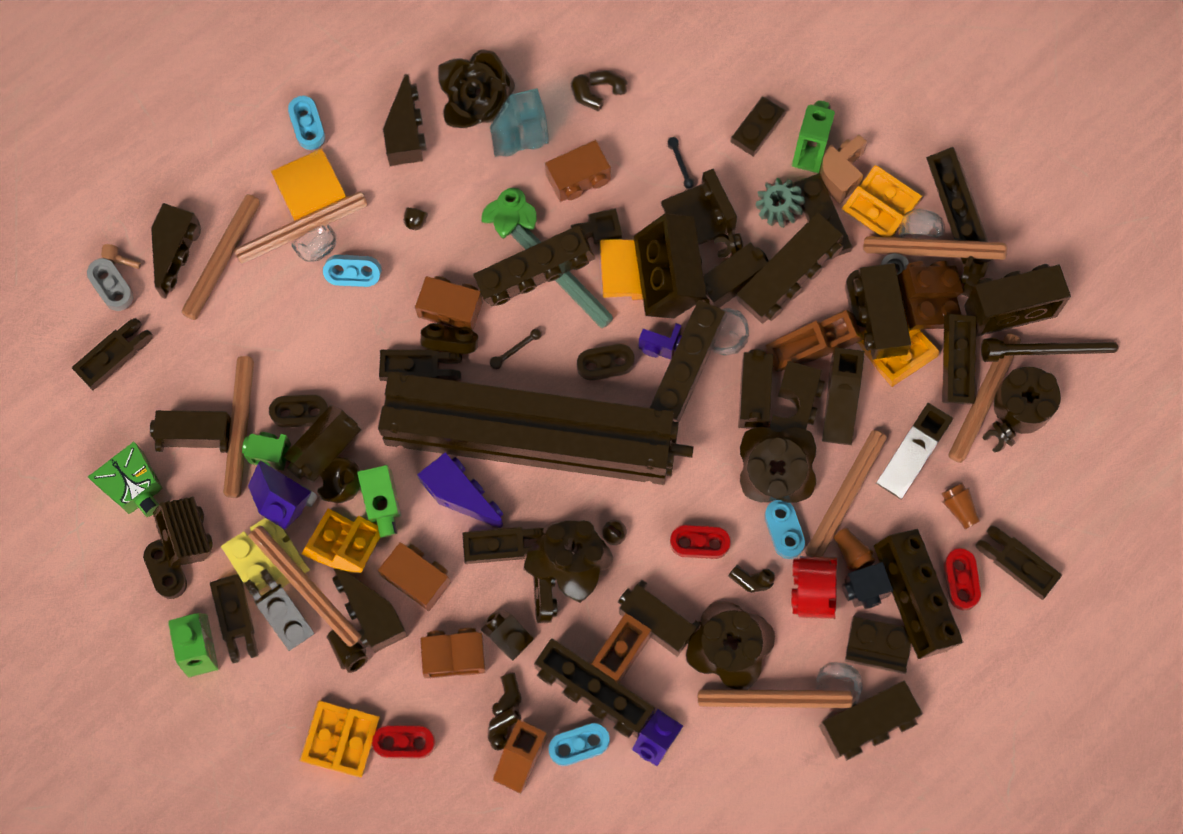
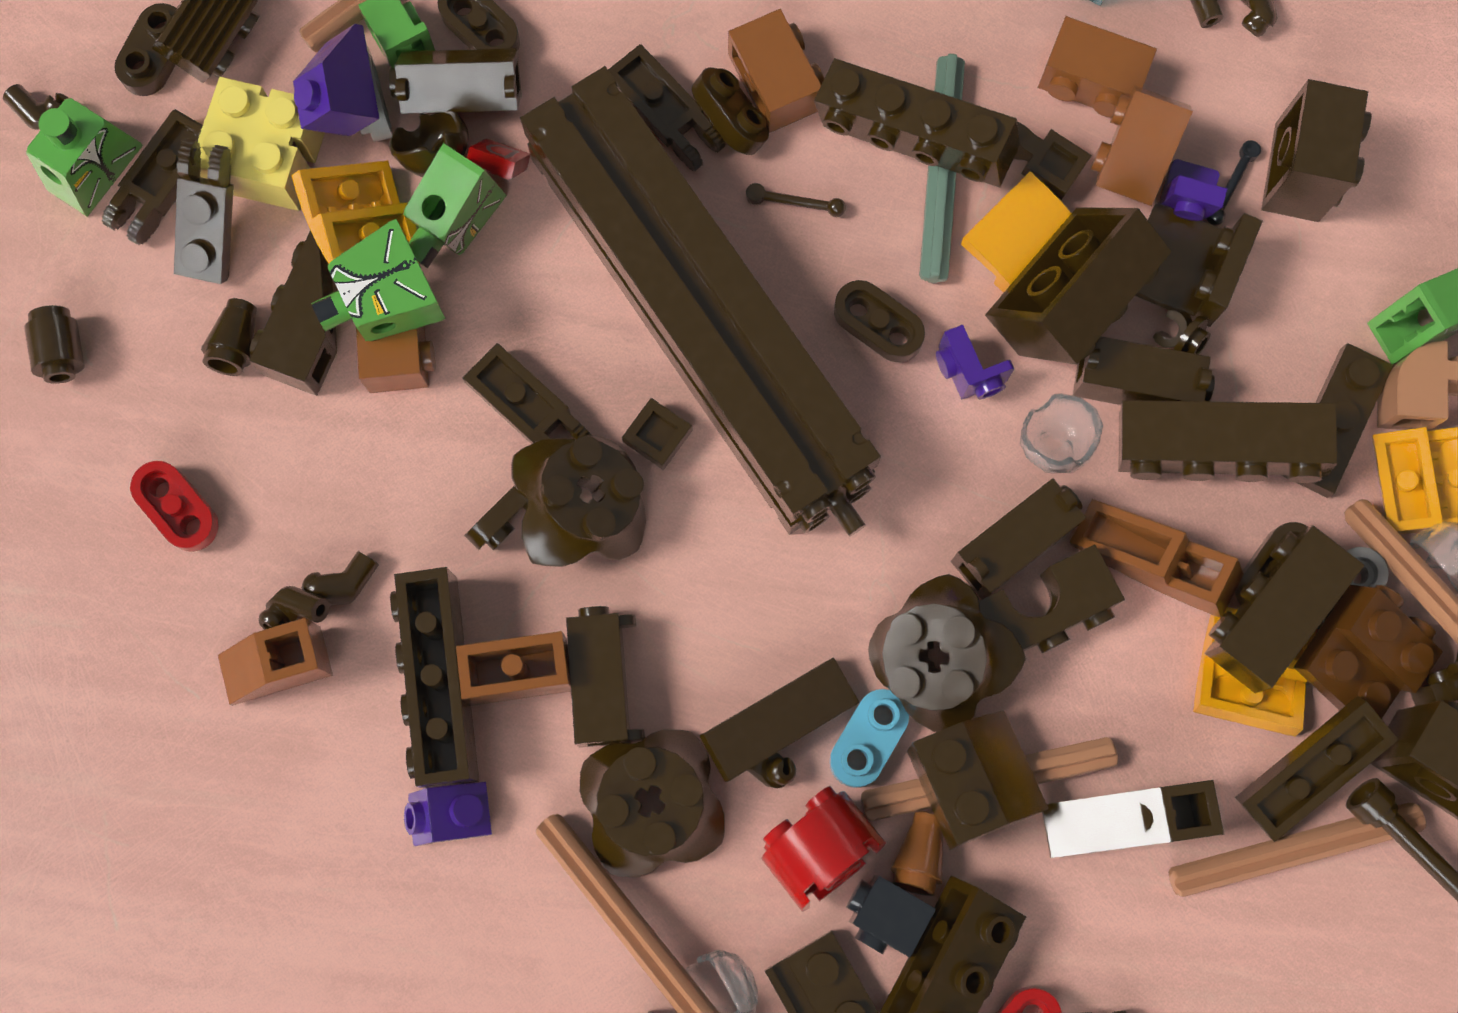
camera: 45 degrees right, 5 degrees up
(148, 648) = (27, 107): none -> dark brown arm
(273, 733) = (53, 344): none -> dark brown brick
(305, 586) = (250, 213): nougat axle -> none
(339, 739) = (115, 427): light orange slope -> none
(375, 457) = (499, 158): none -> red tile
(396, 557) = (379, 288): none -> bright green torso
(452, 654) = (334, 467): dark orange brick -> none
(453, 490) = (544, 276): dark purple slope -> none
(506, 633) = (417, 509): dark brown bracket -> none
(509, 214) = (959, 35): bright green plate -> none
(568, 500) = (657, 433): none -> dark brown plate
(578, 742) = (354, 724): medium azure plate -> none
(612, 538) = (680, 526): dark brown hinge -> none
(632, 185) = (1142, 144): none -> dark orange brick
(669, 183) = (1192, 190): none -> dark purple bracket
(689, 359) = (974, 418): dark brown brick -> none
(699, 538) = (752, 644): red plate -> none
(701, 119) = (1316, 150): none -> dark brown brick
(744, 558) = (779, 719): none -> dark brown tile
(758, 126) = (1378, 233): dark brown plate -> none
(777, 193) = (1303, 365): sand green gear -> none
(842, 395) = (1117, 657): dark brown slope -> none
(842, 498) = (976, 778): none -> dark brown slope
(961, 505) = (1116, 946): dark orange cone -> none
(1003, 433) = (1270, 921): dark brown plate -> none
(1031, 384) = (1379, 912): dark brown brick -> none

